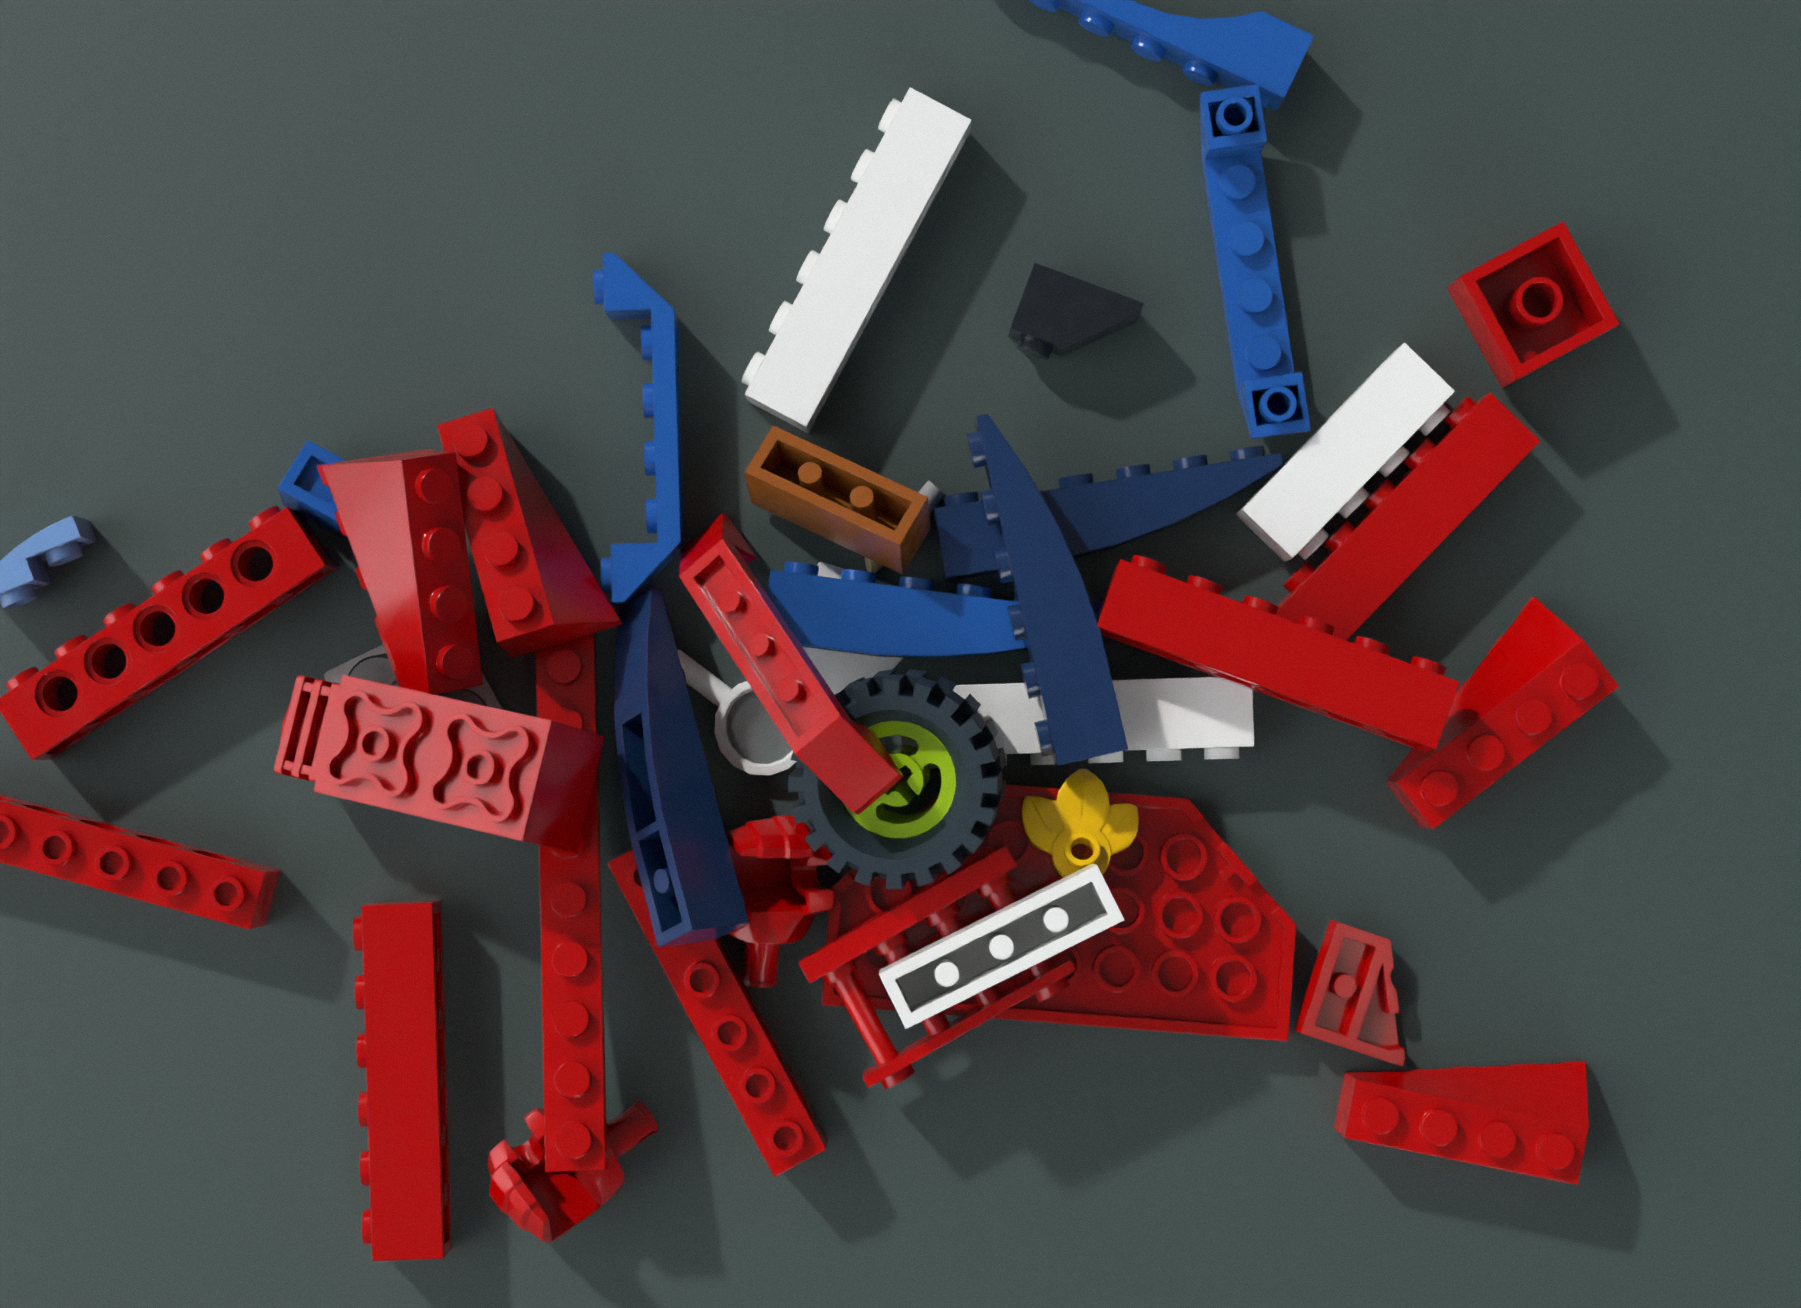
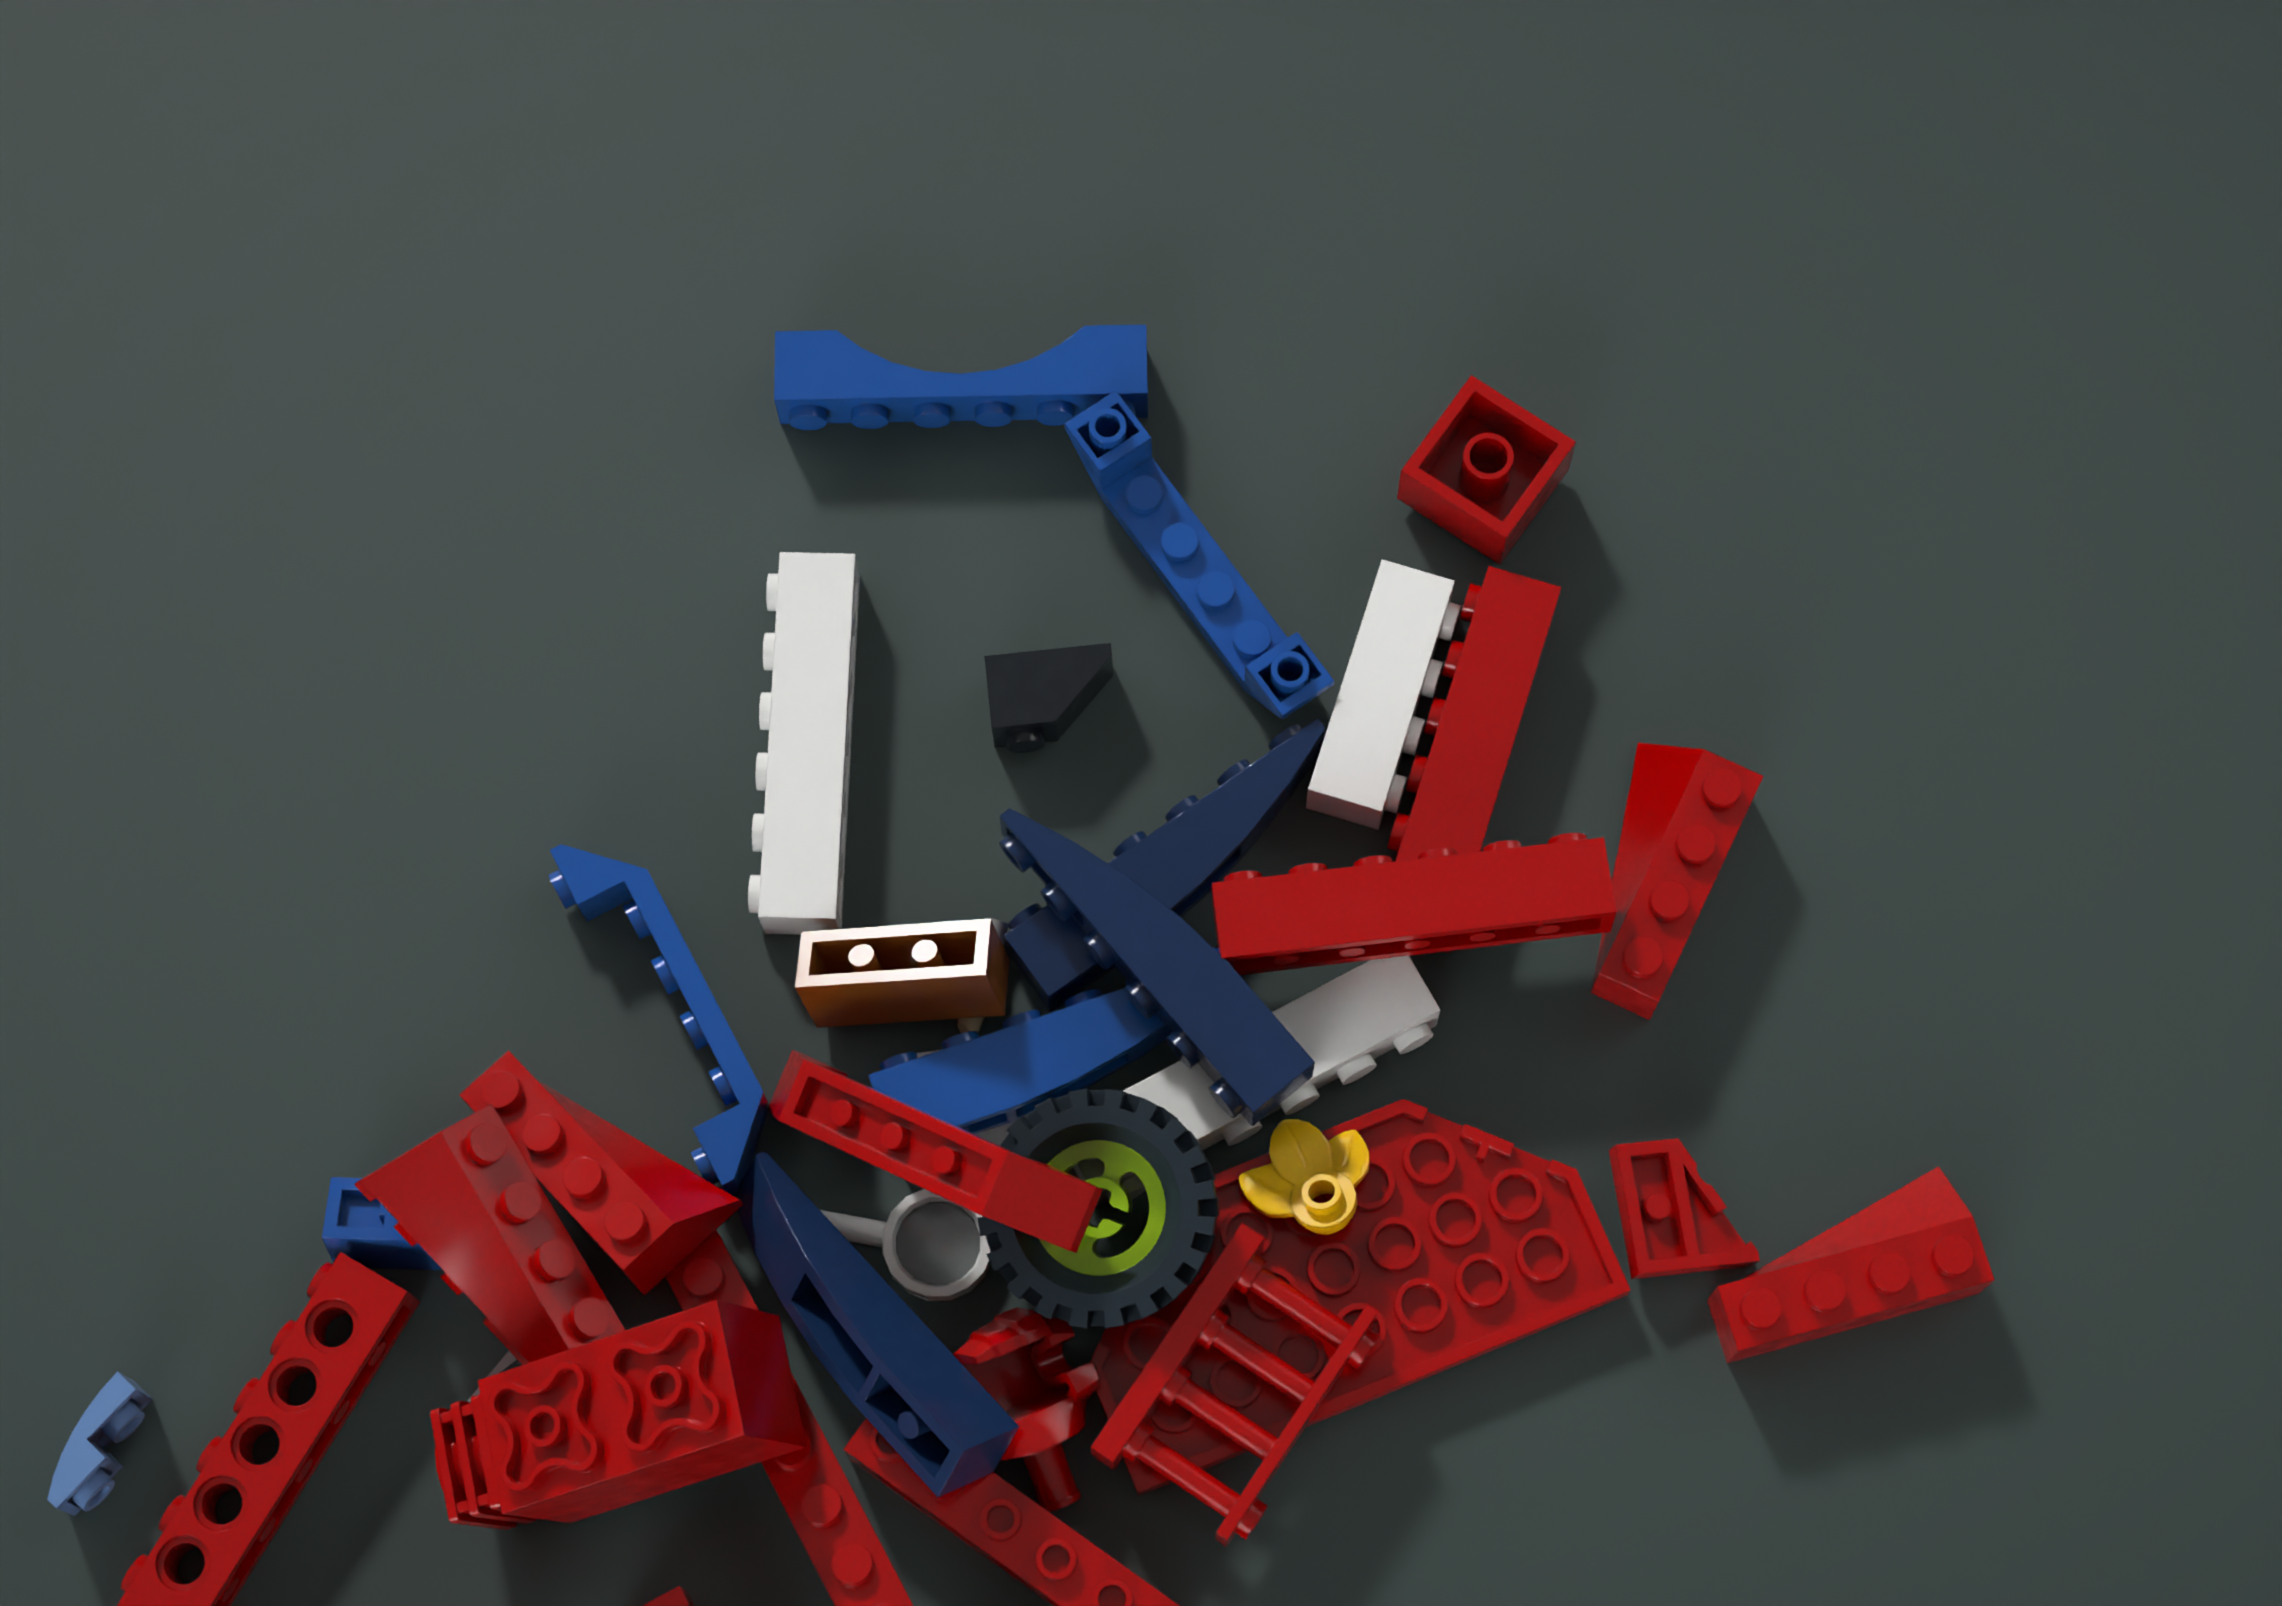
camera: 25 degrees left, 15 degrees down
(1000, 945) = (1286, 1317): white brick -> none

